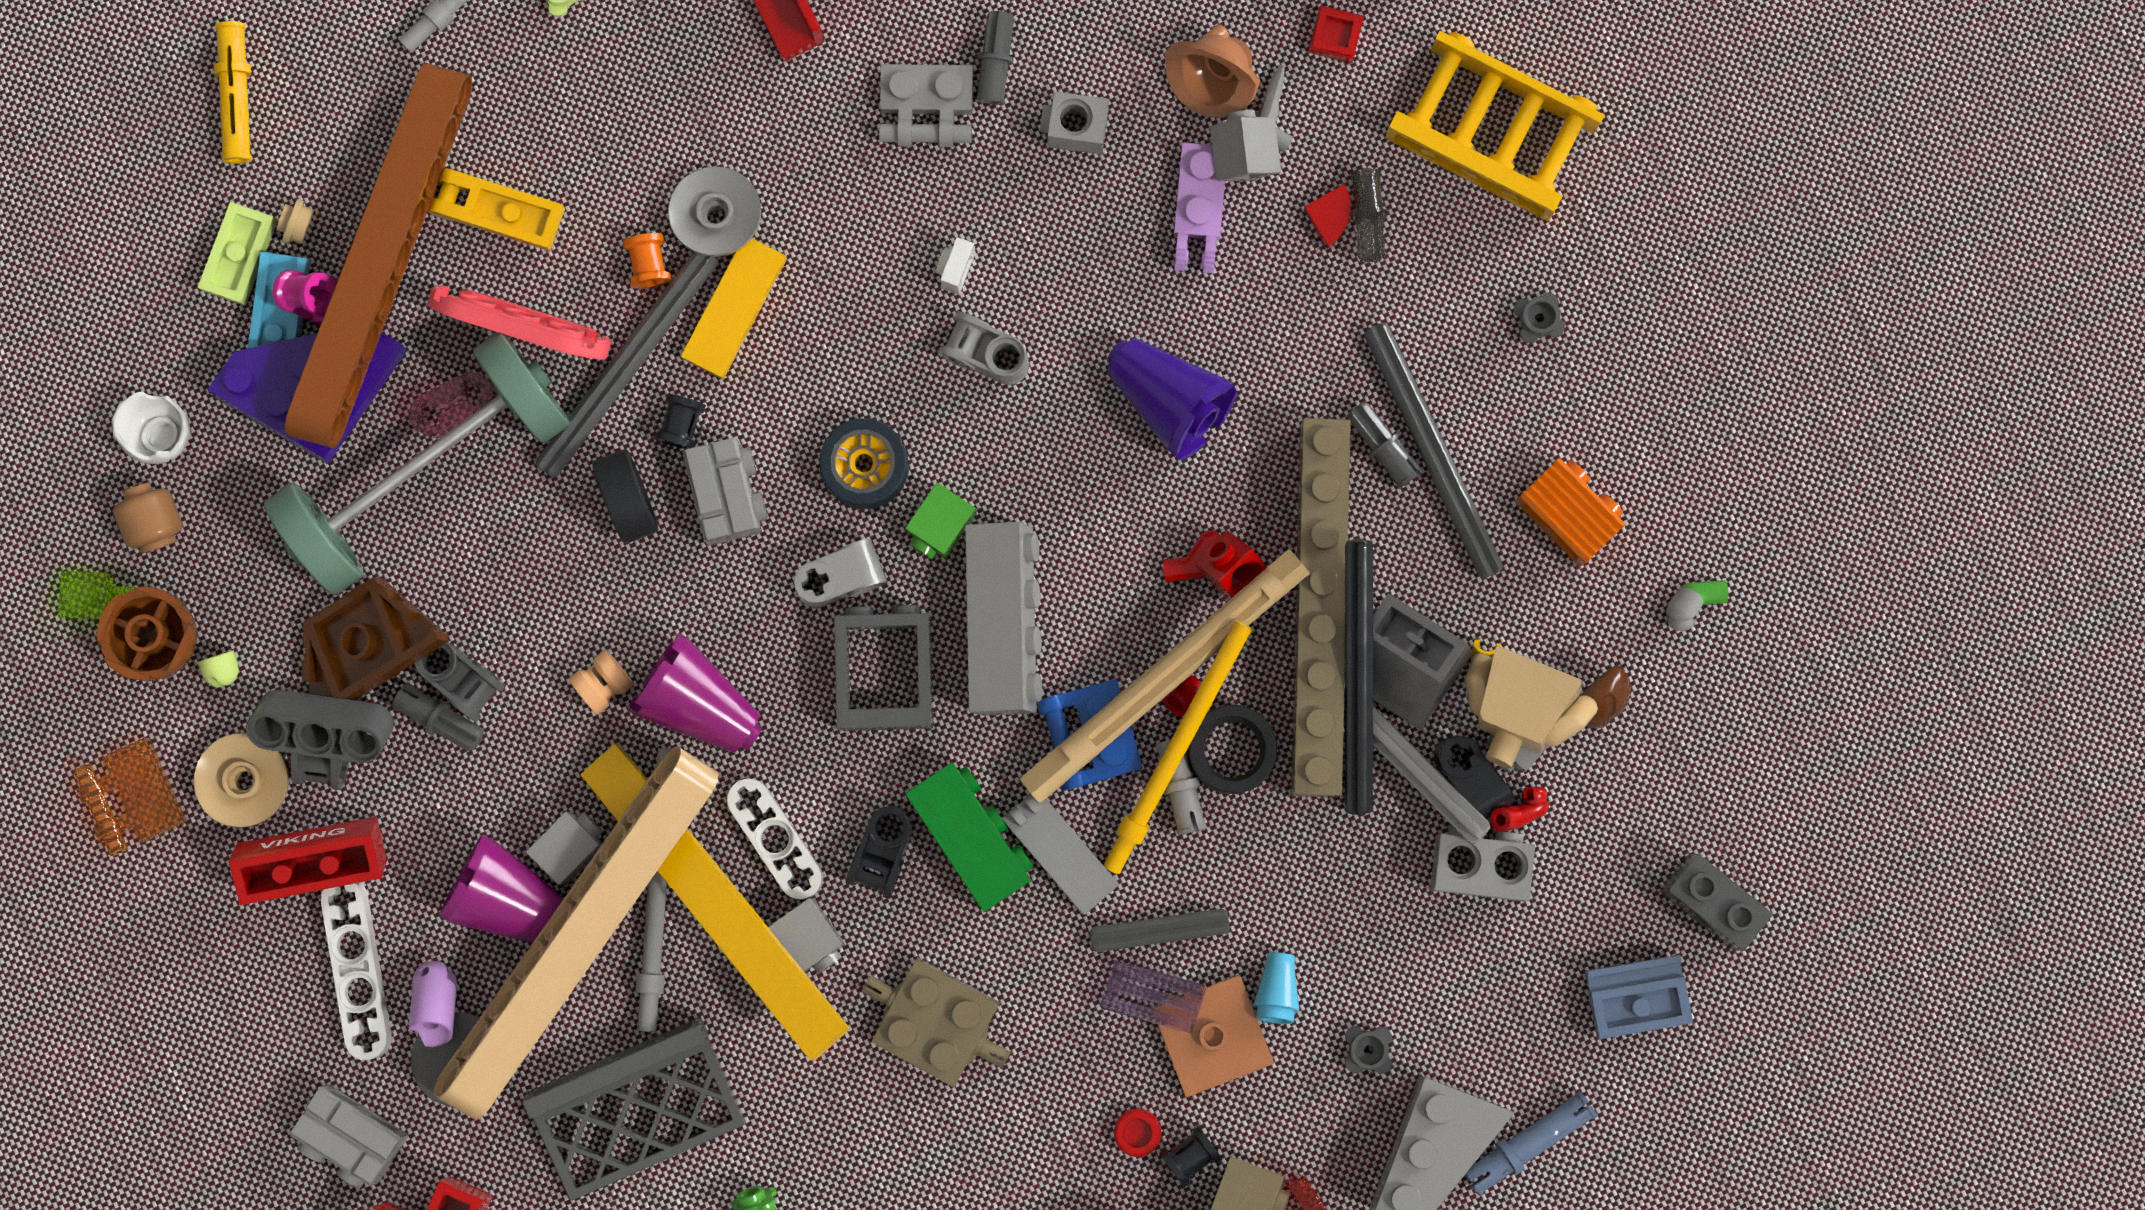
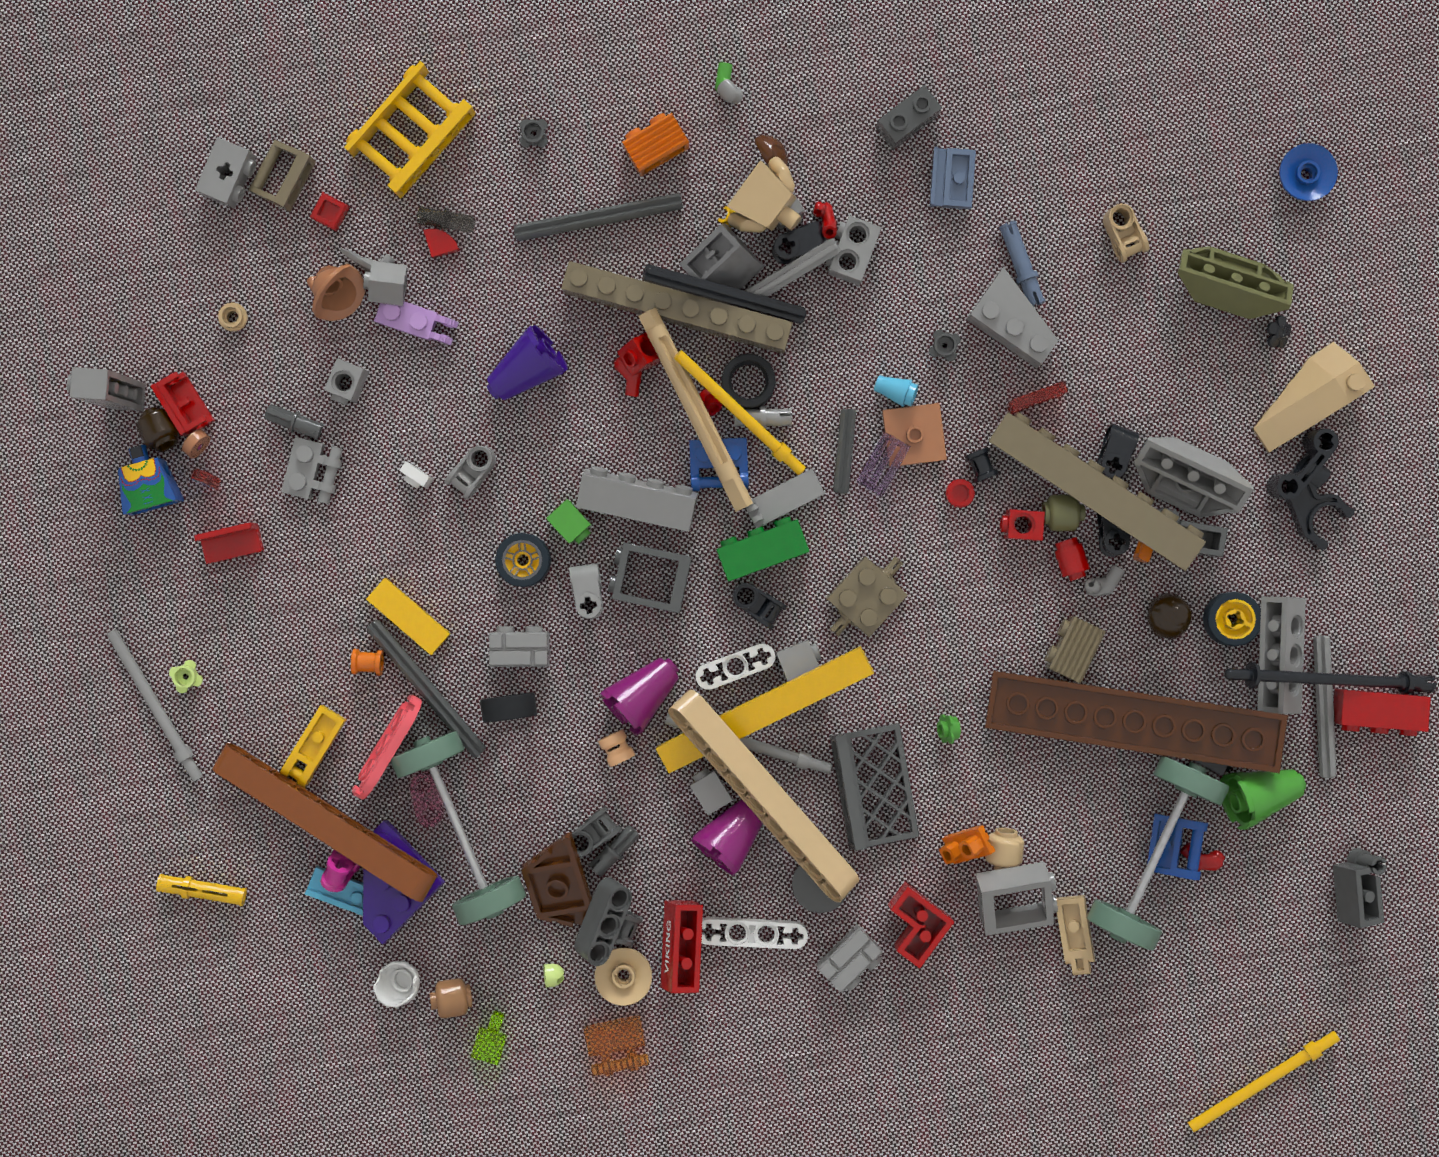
camera: 80 degrees left, 5 degrees up
(147, 634) = (522, 1013): dark orange cylinder -> none
(236, 253) = (302, 909): yellowish green plate -> none
(295, 222) = (291, 869): tan plate -> none
(433, 1003) = (784, 891): lavender piece -> none
(679, 422) = (471, 664): black bush -> none
(710, 191) = (333, 613): light grey dish -> none
(1385, 446) = (588, 245): dark grey axle -> none

